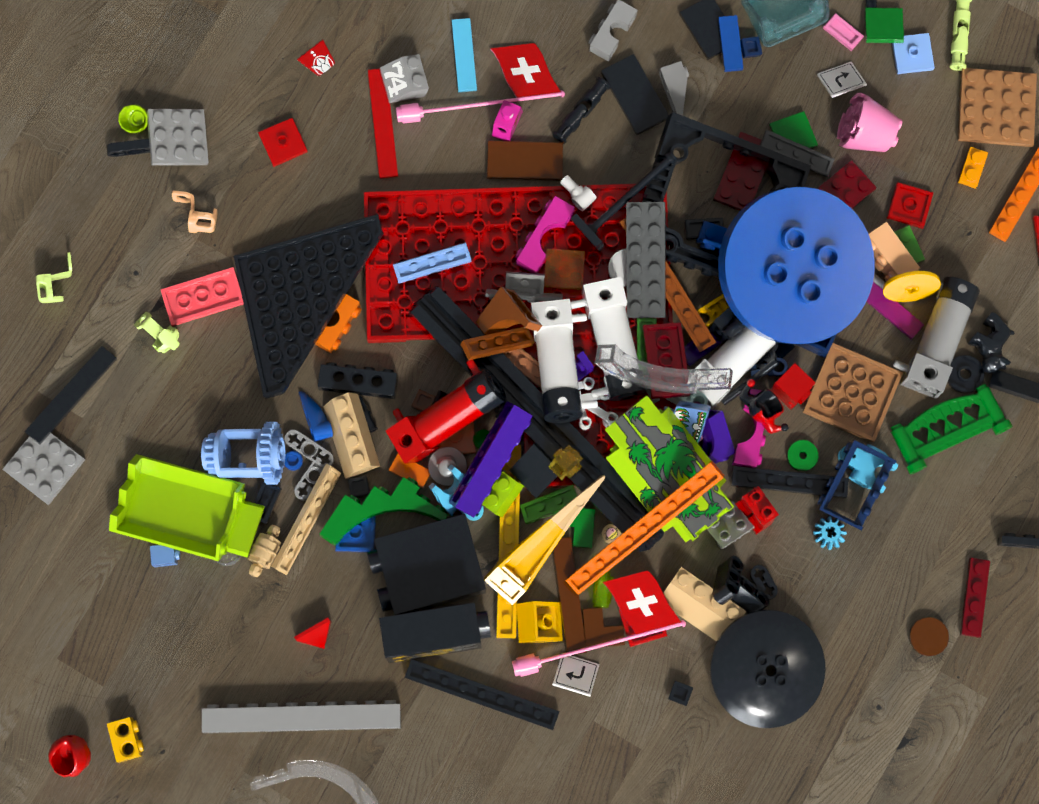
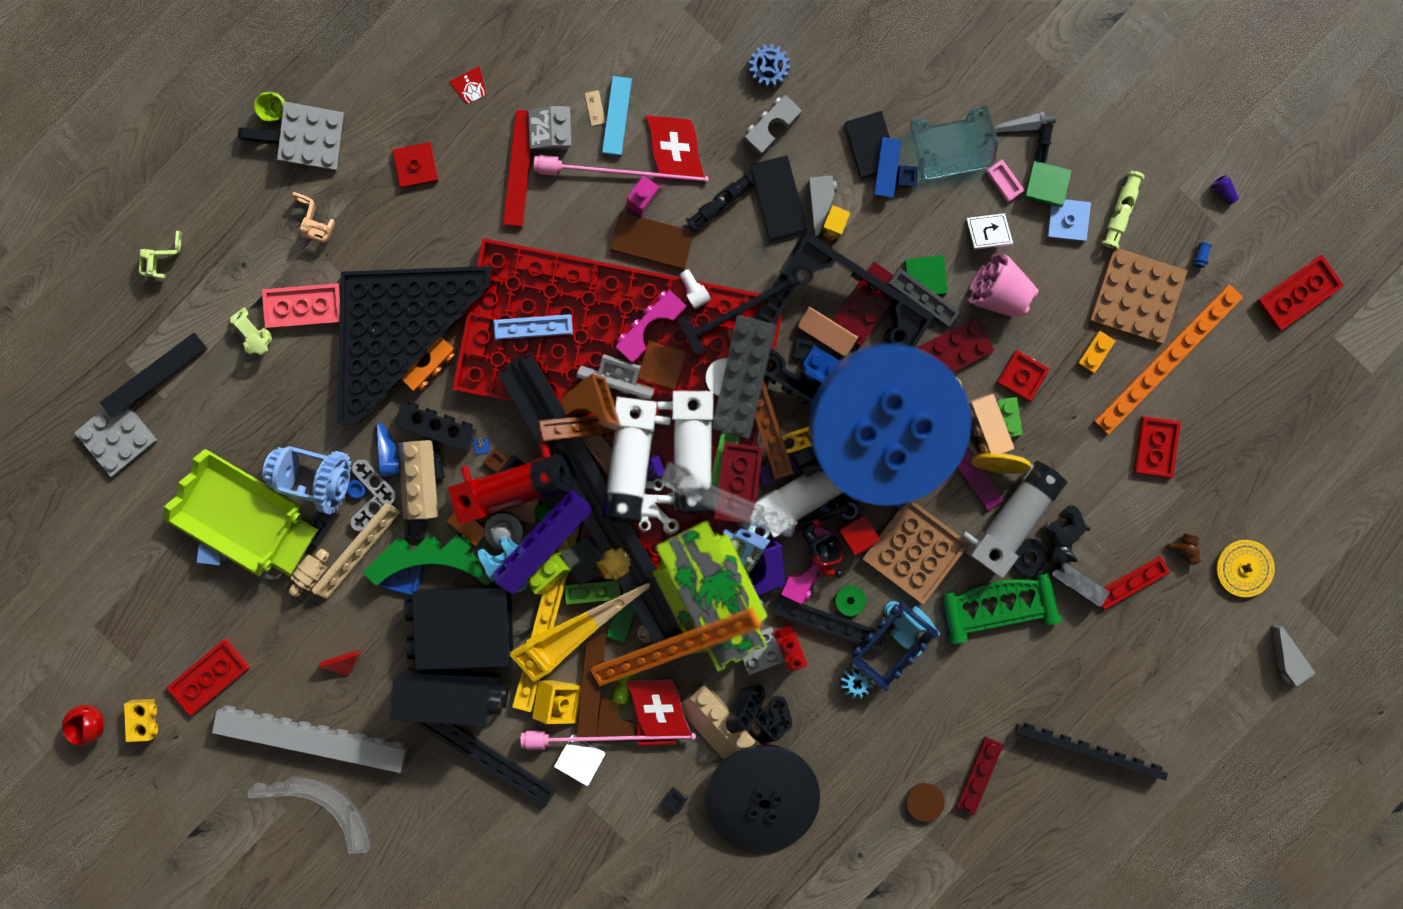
camera: 15 degrees right, 10 degrees up
(183, 682) = (208, 677): none -> red tile
(405, 391) = (481, 446): none -> blue sticker
(441, 53) = (595, 108): none -> tan sticker
(695, 102) = (835, 223): none -> yellow brick
(712, 204) = (827, 331): none -> nougat slope

